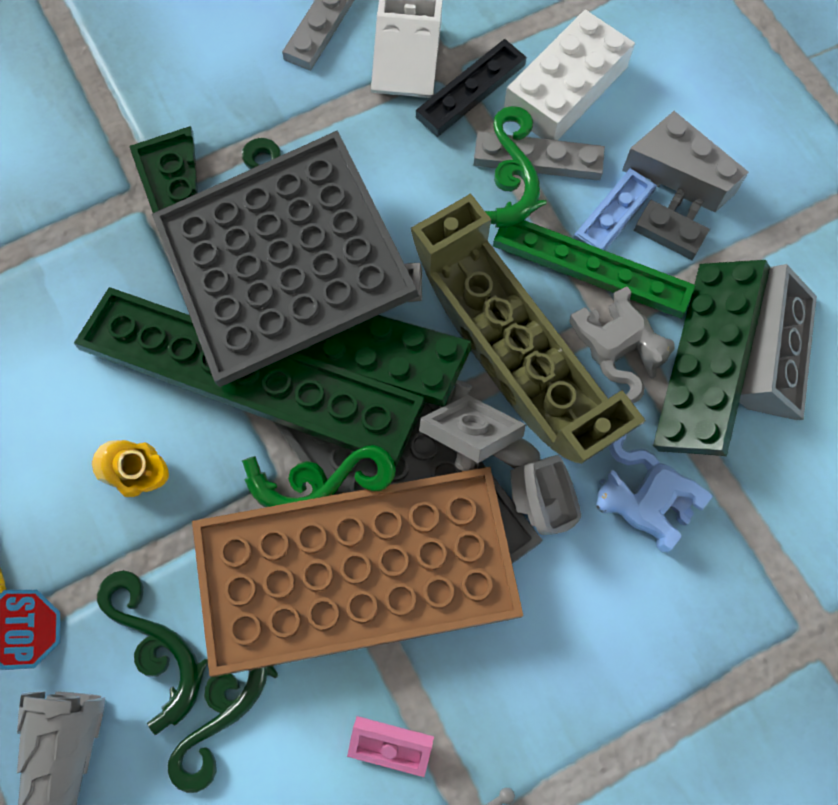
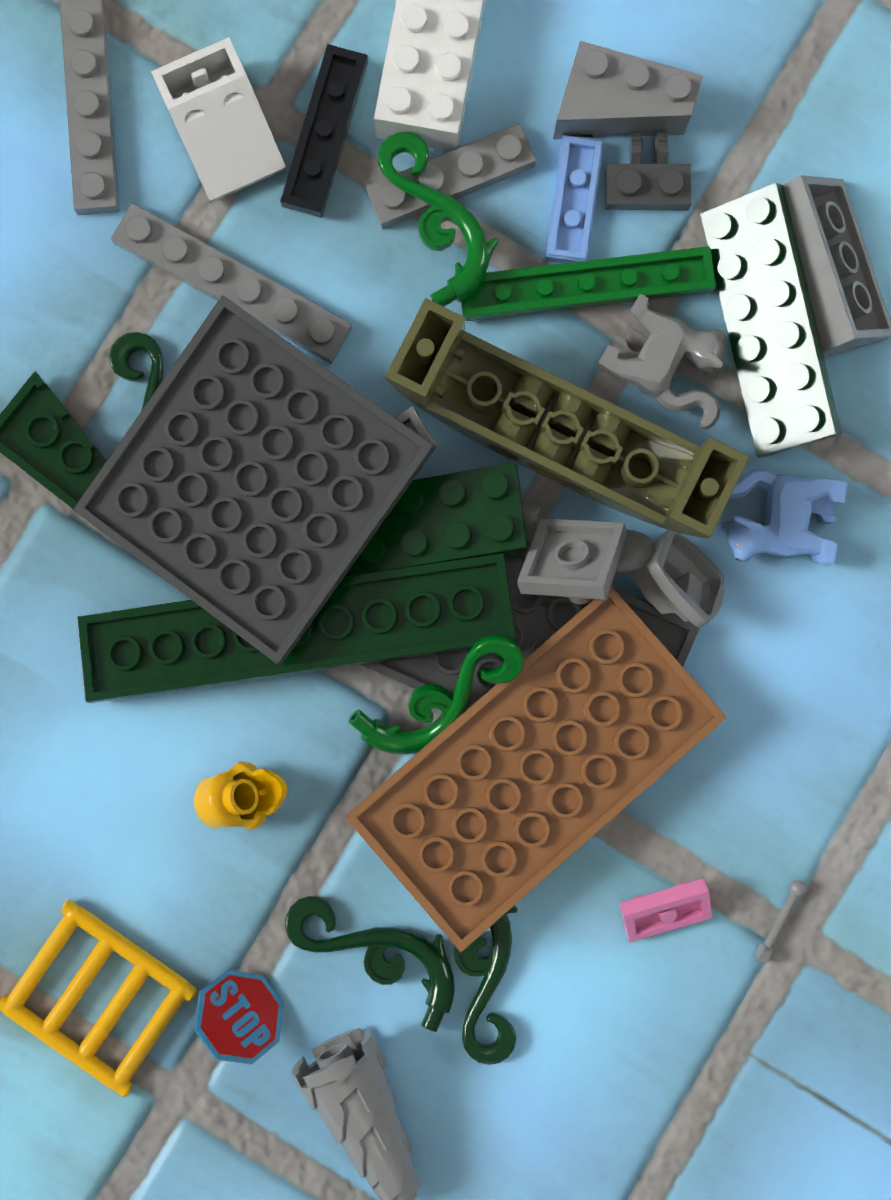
camera: 30 degrees left, 15 degrees up
(335, 115) = (221, 275): none -> light grey plate

